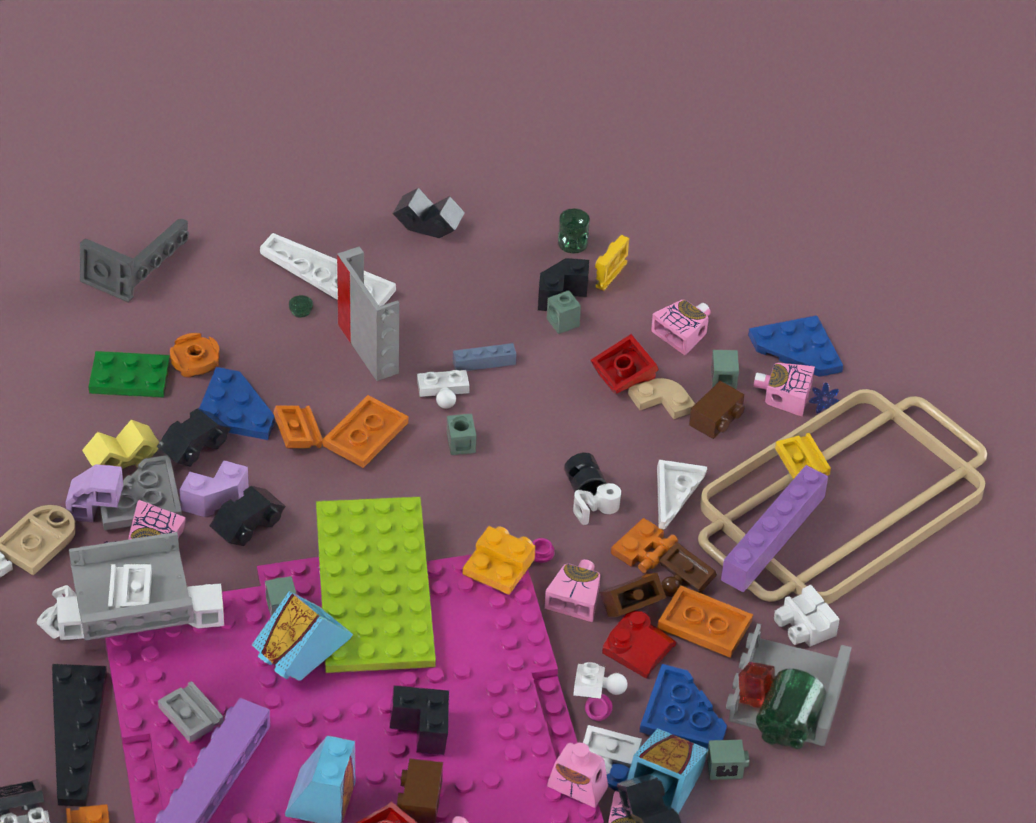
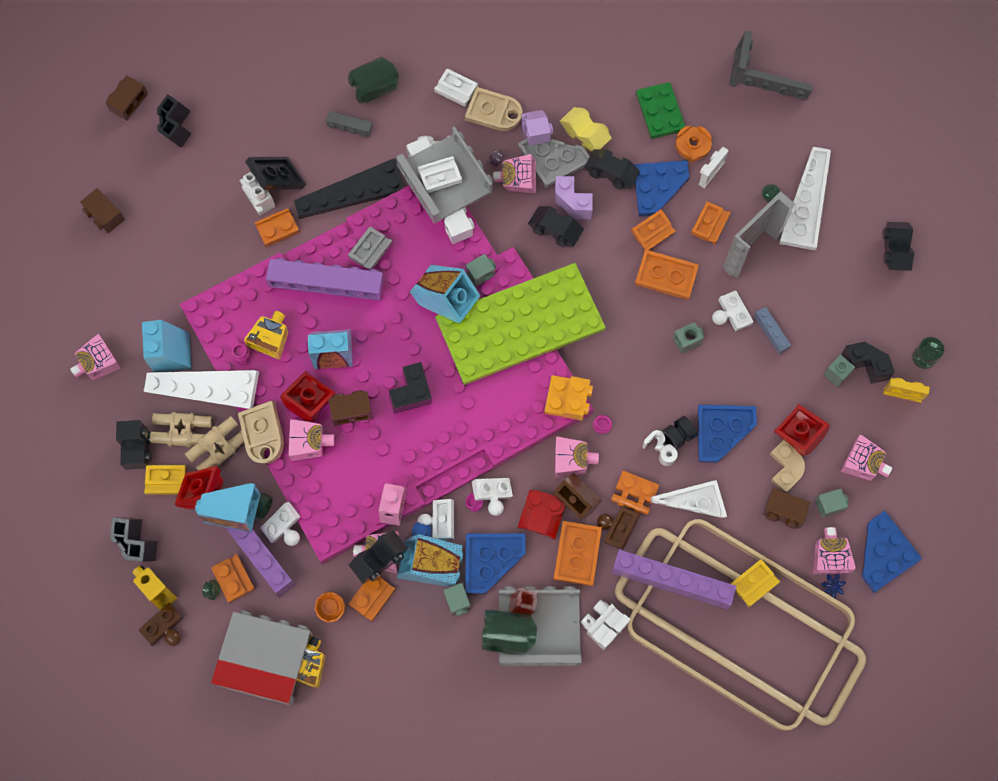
camera: 75 degrees right, 25 degrees up
(242, 341) = (710, 170): none -> white plate
(314, 370) = (710, 222): none -> orange plate
(594, 433) = (722, 429): none -> blue plate

